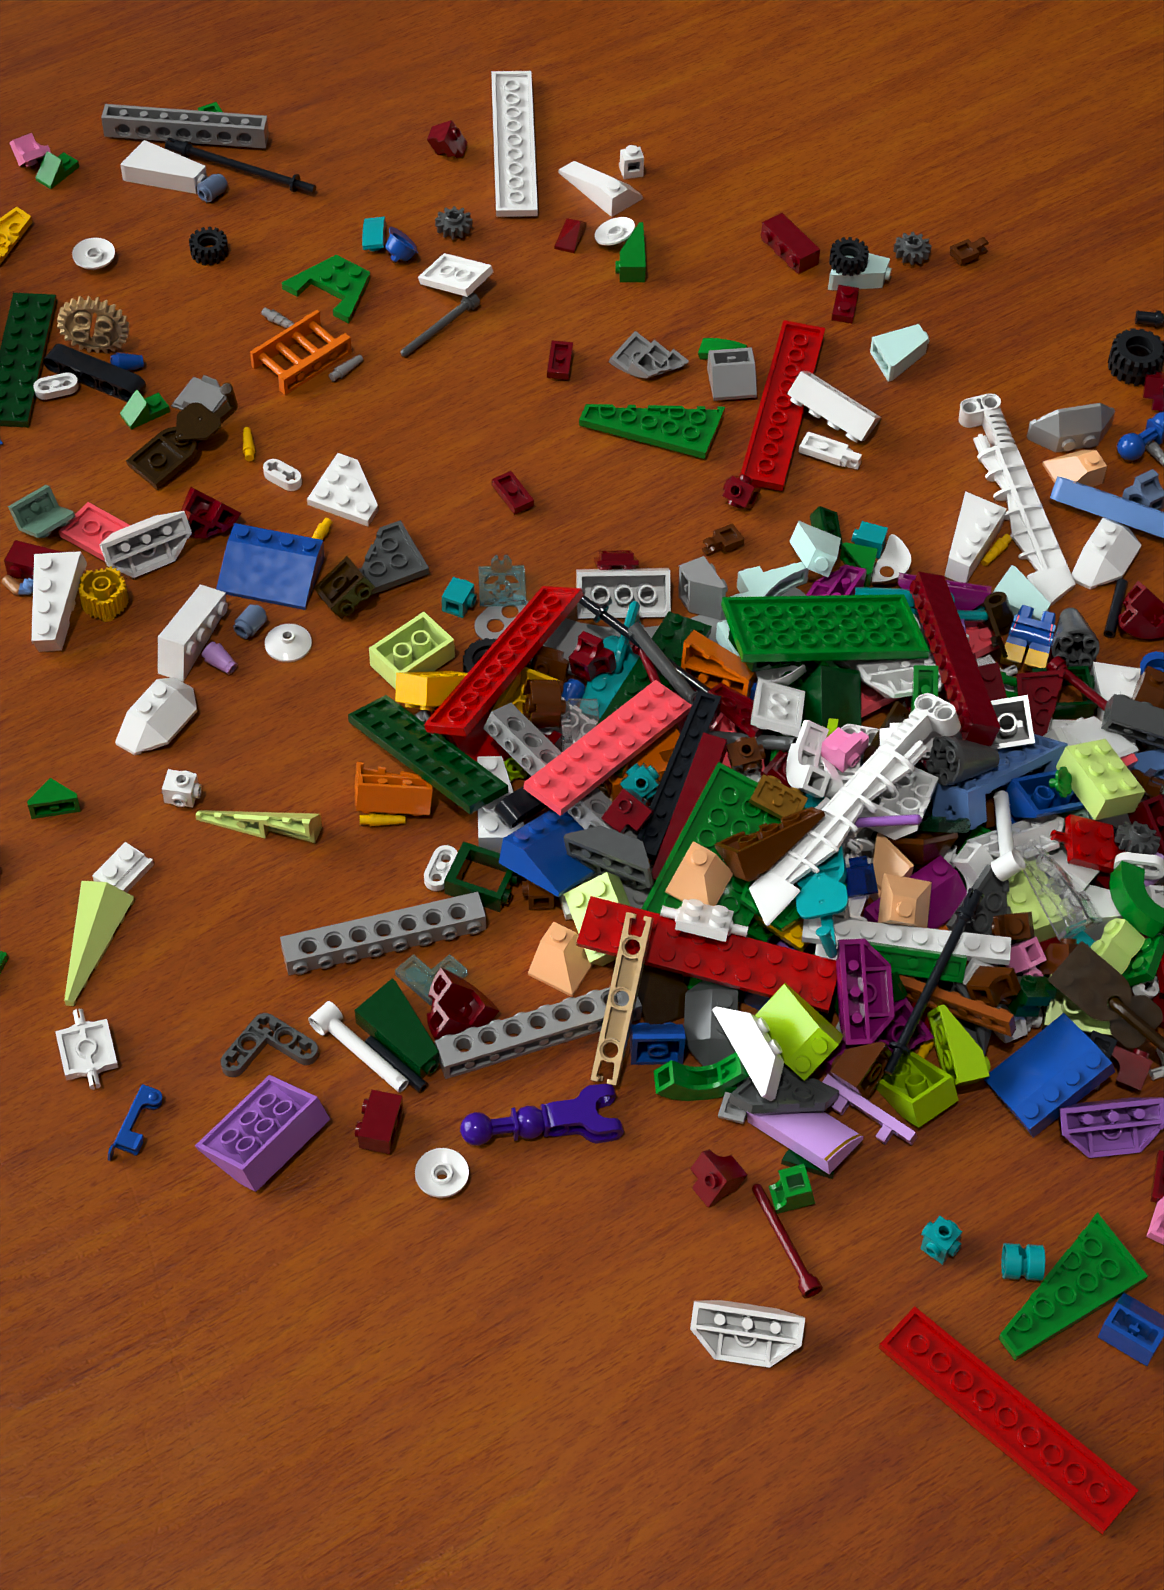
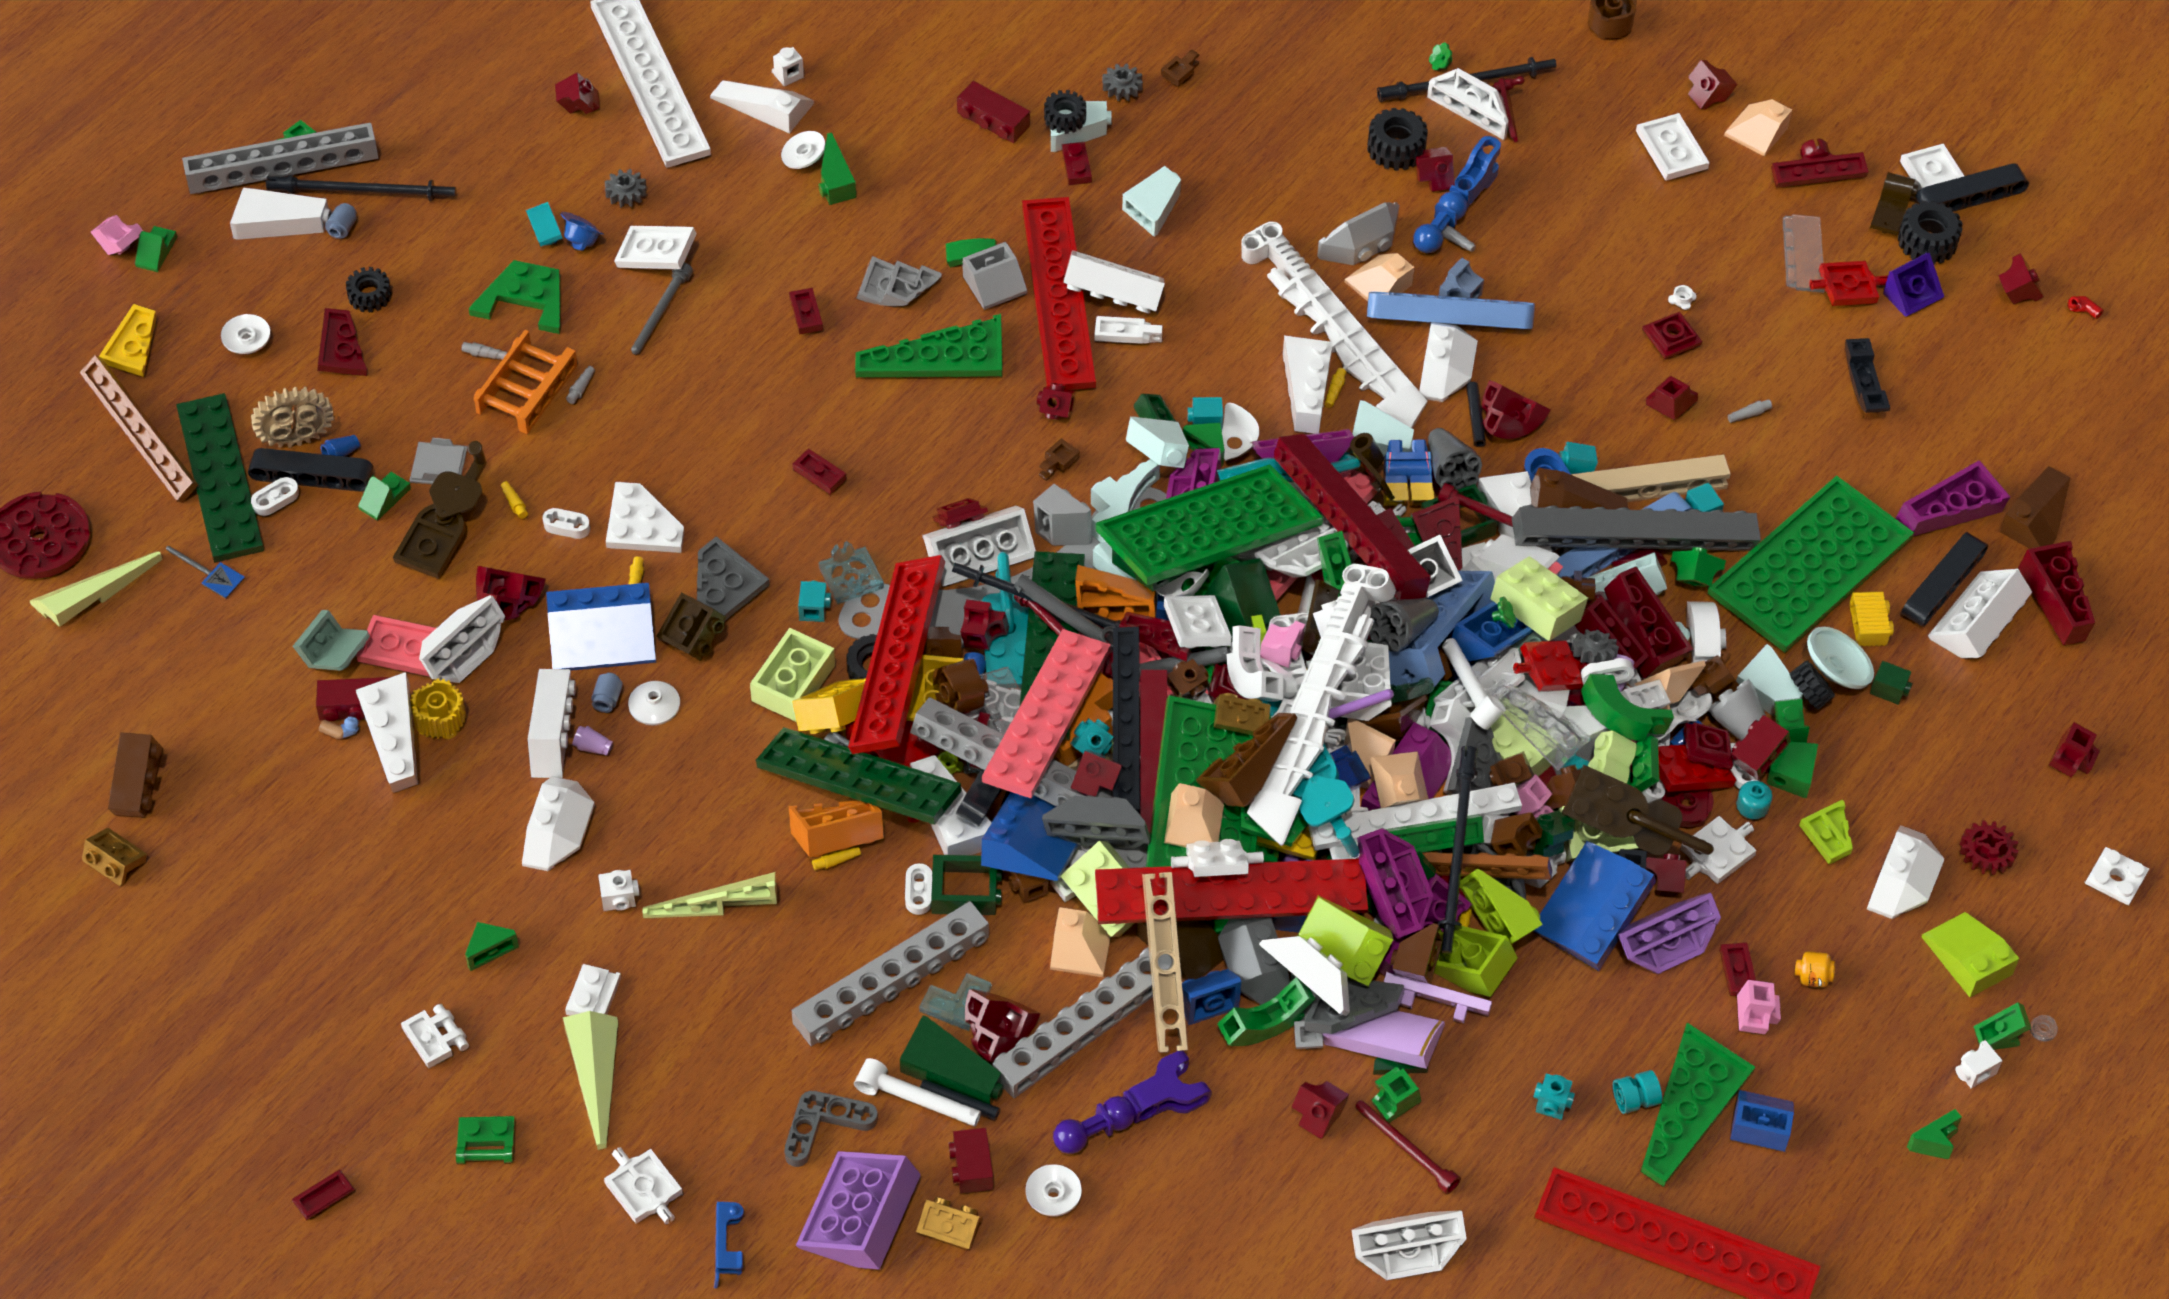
camera: 20 degrees left, 0 degrees up
(164, 282) = (339, 345): none -> dark red wing
(336, 1170) = (949, 1223): none -> pearl gold bracket
(570, 235) = (754, 167): dark red slope -> none

